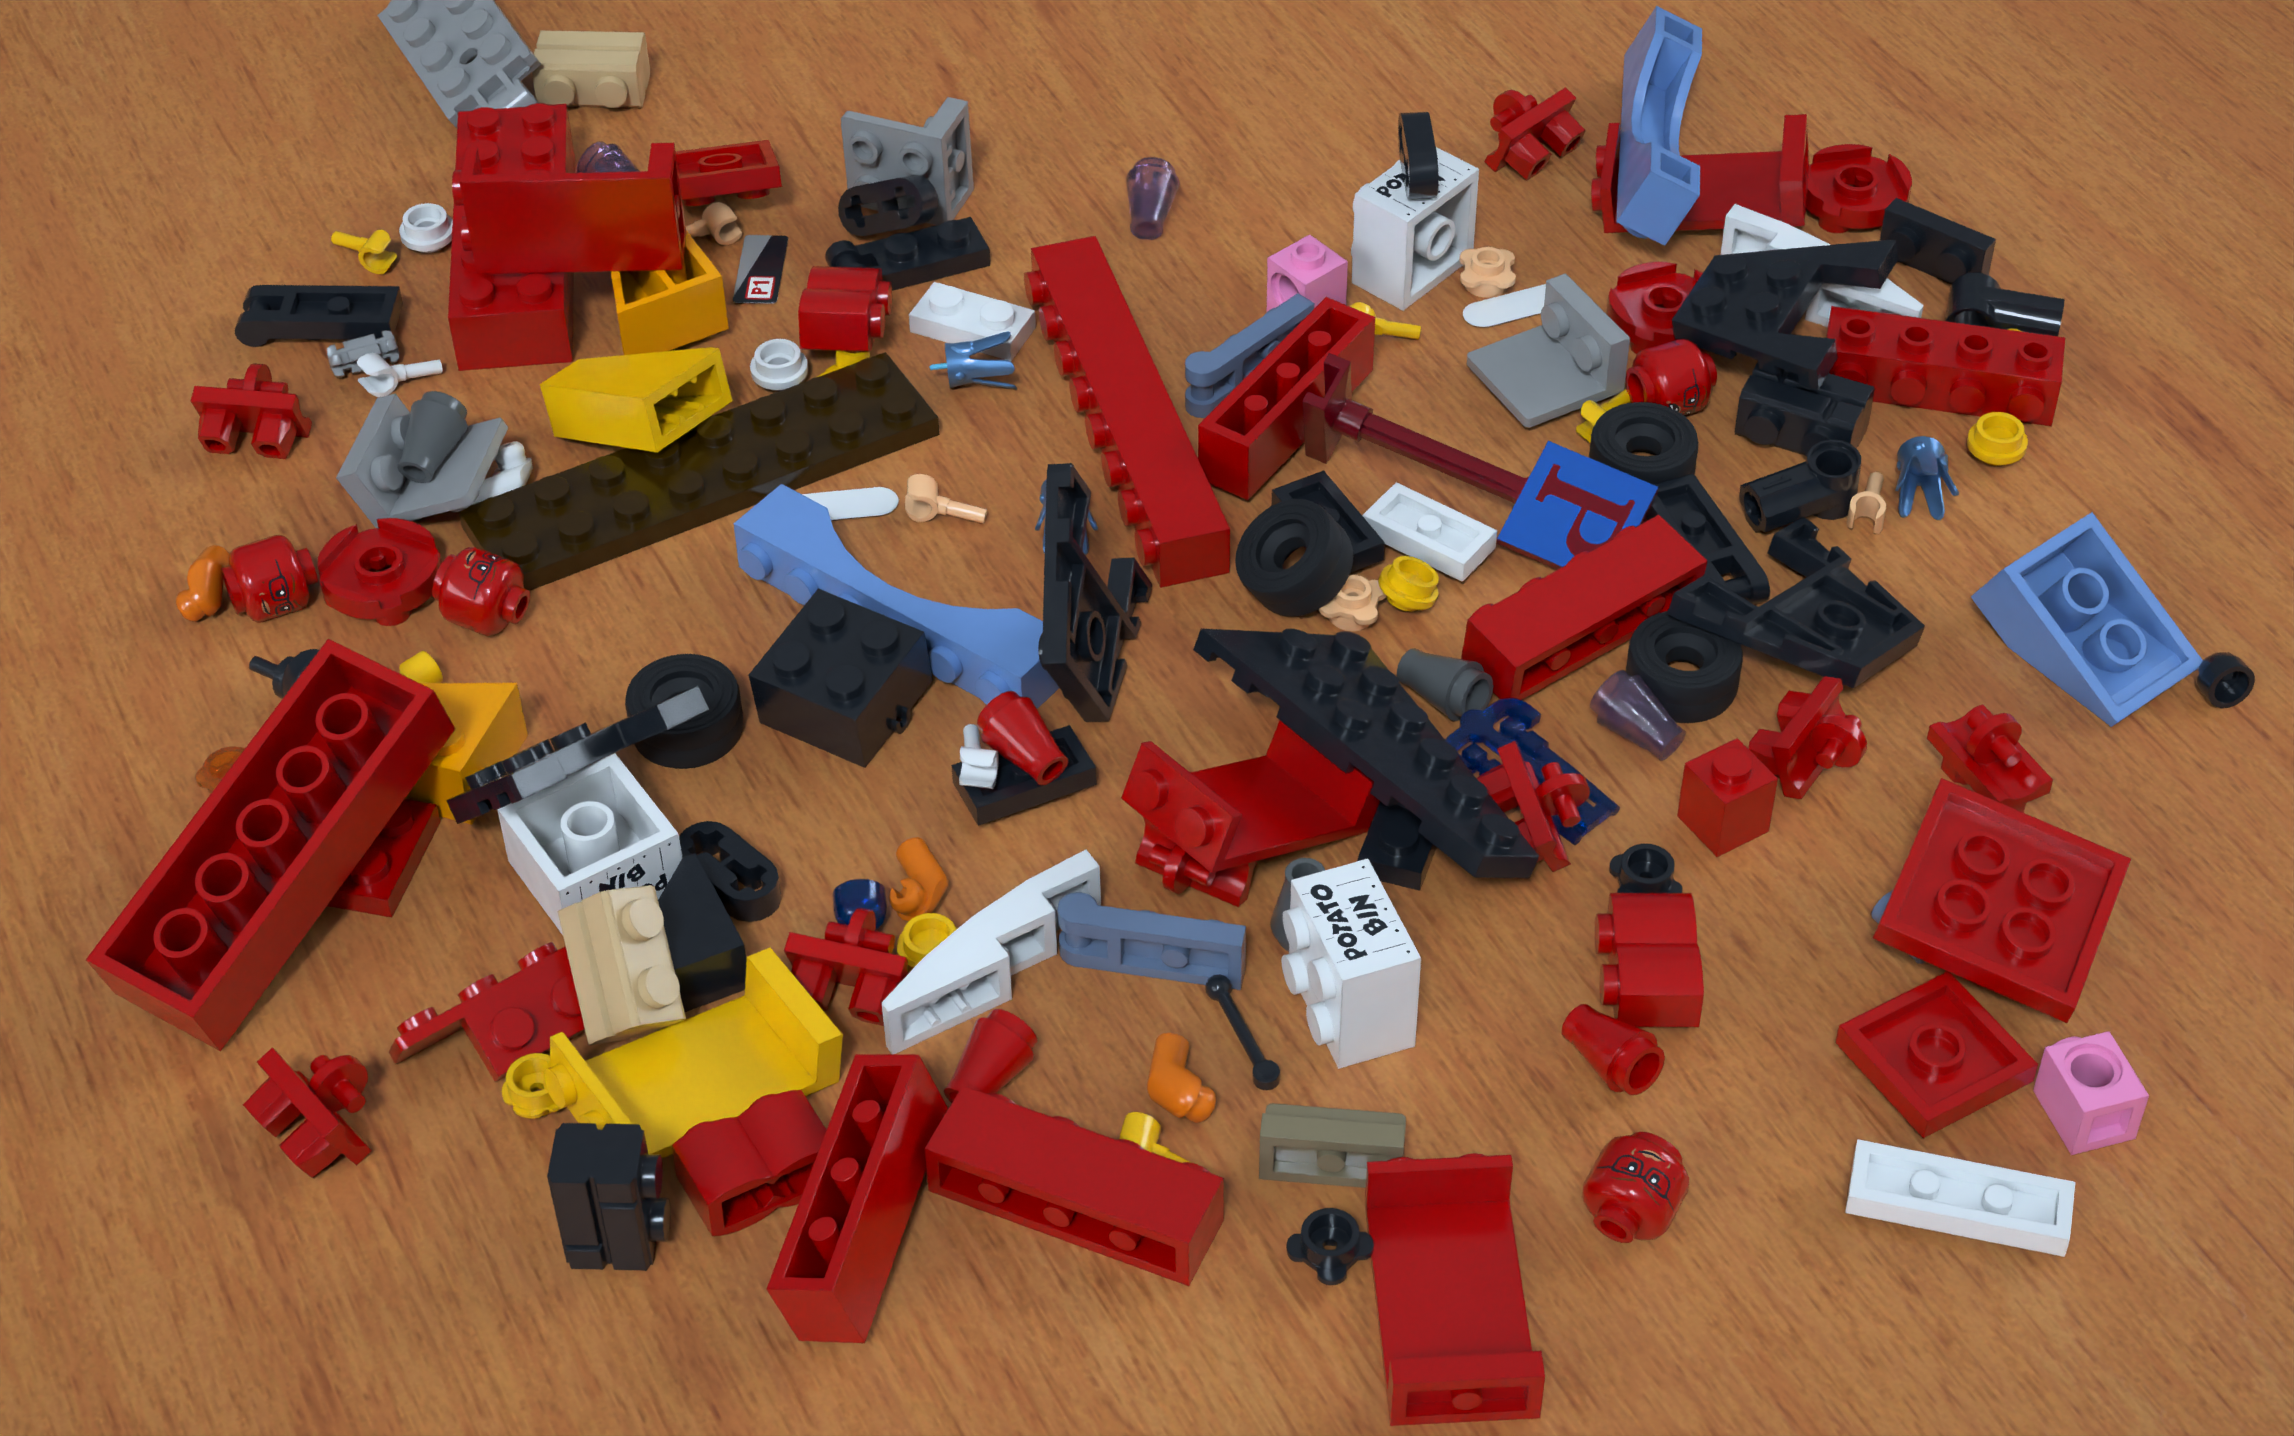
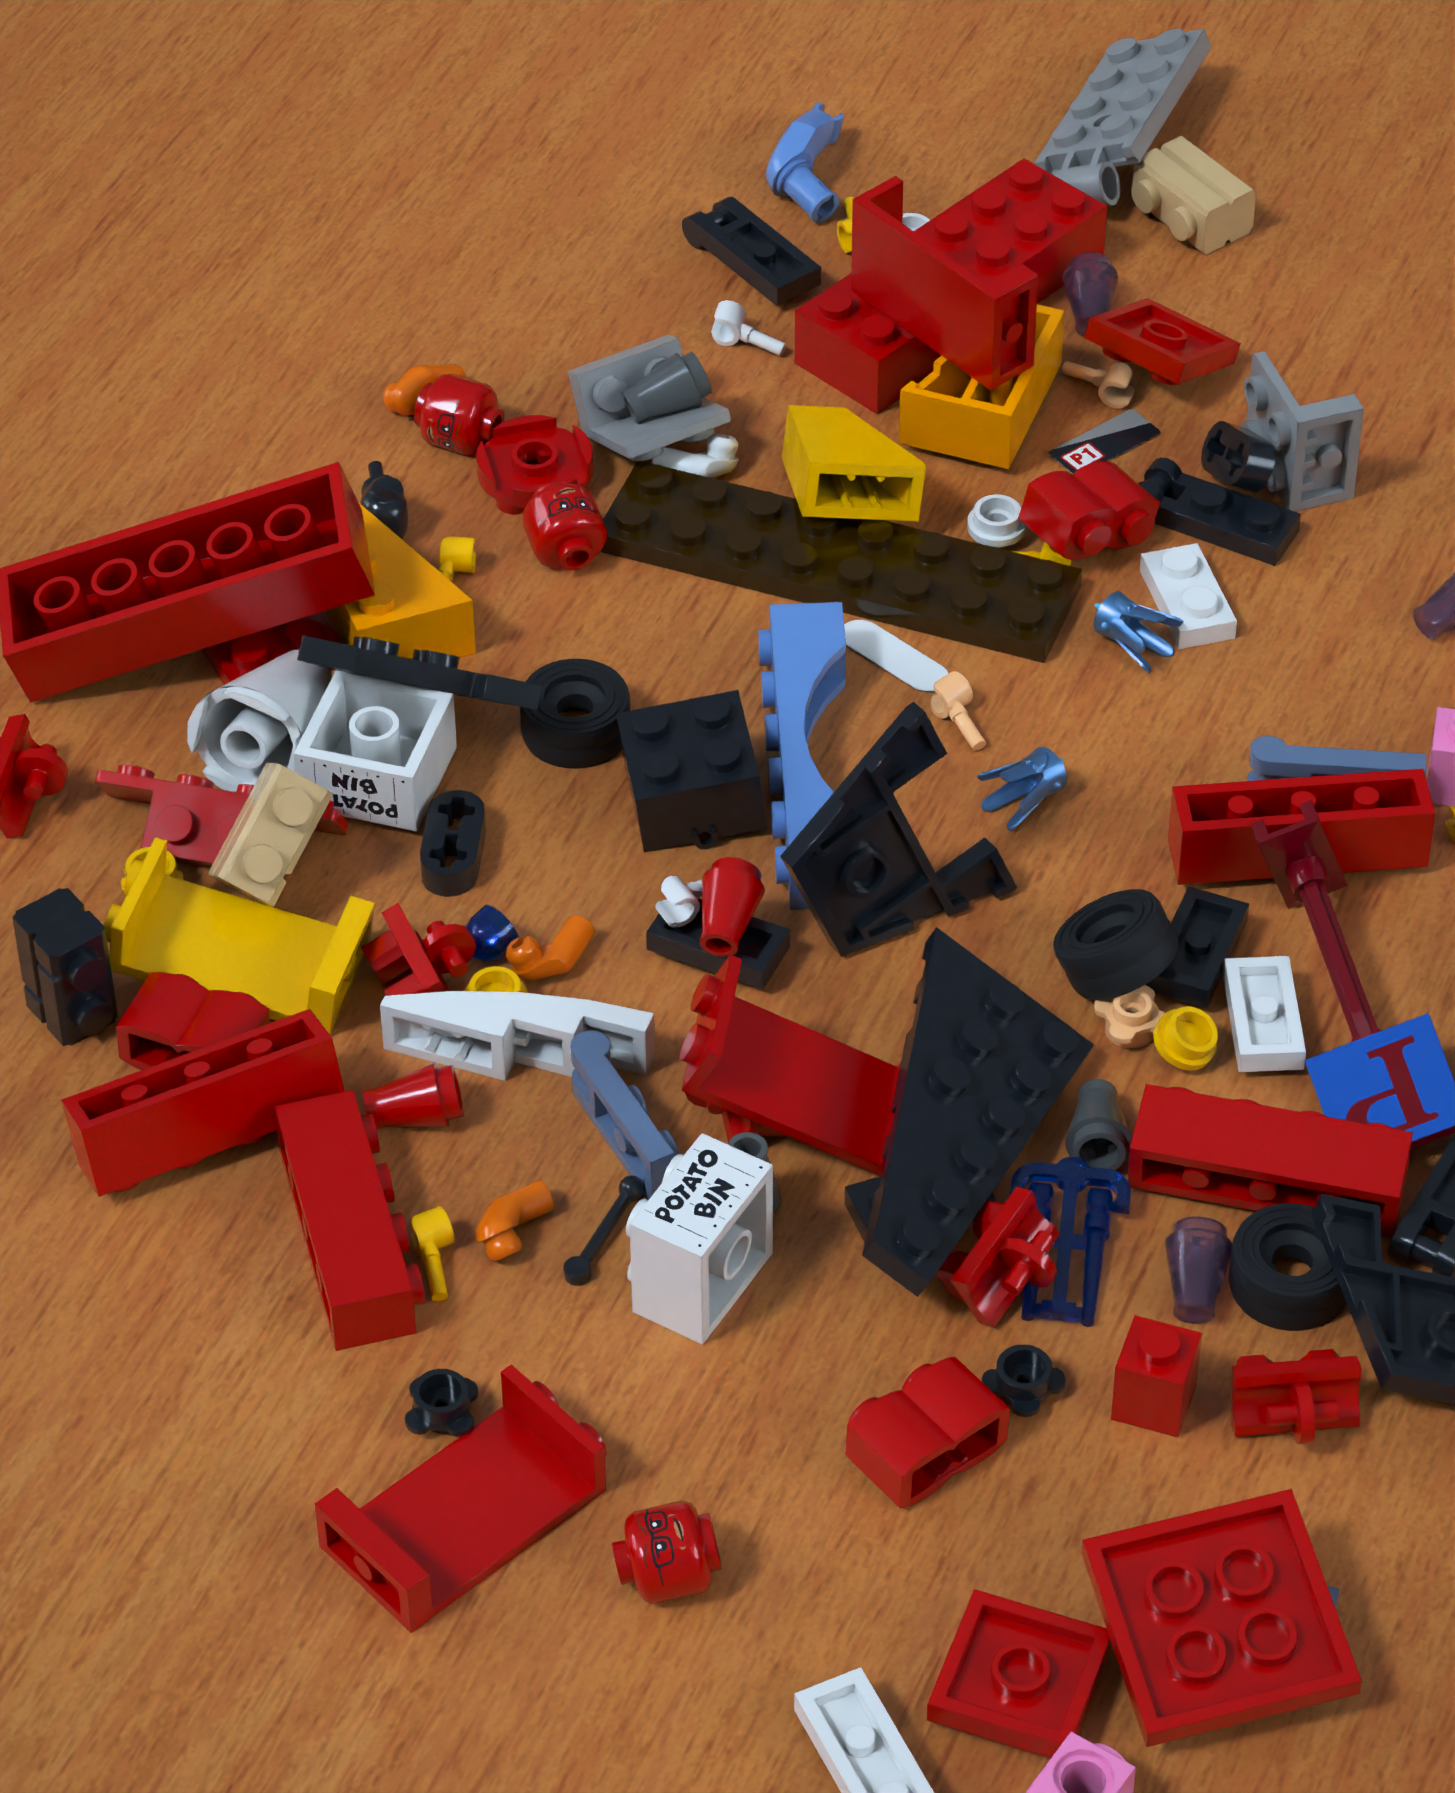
camera: 50 degrees right, 0 degrees up
(251, 407) = (611, 286): red hips -> none
(267, 236) = (793, 161): none -> medium blue arm
(347, 357) = (749, 298): light grey piece -> none
(476, 902) = (256, 720): none -> white cone
(701, 937) = (358, 858): black slope -> none
(1128, 413) = (1184, 741): red brick -> none
(1326, 1143) = (542, 1342): dark tan panel -> none
(1617, 1051) = (806, 1466): red cone -> none
(1987, 756) = (1392, 1531): red hips -> none

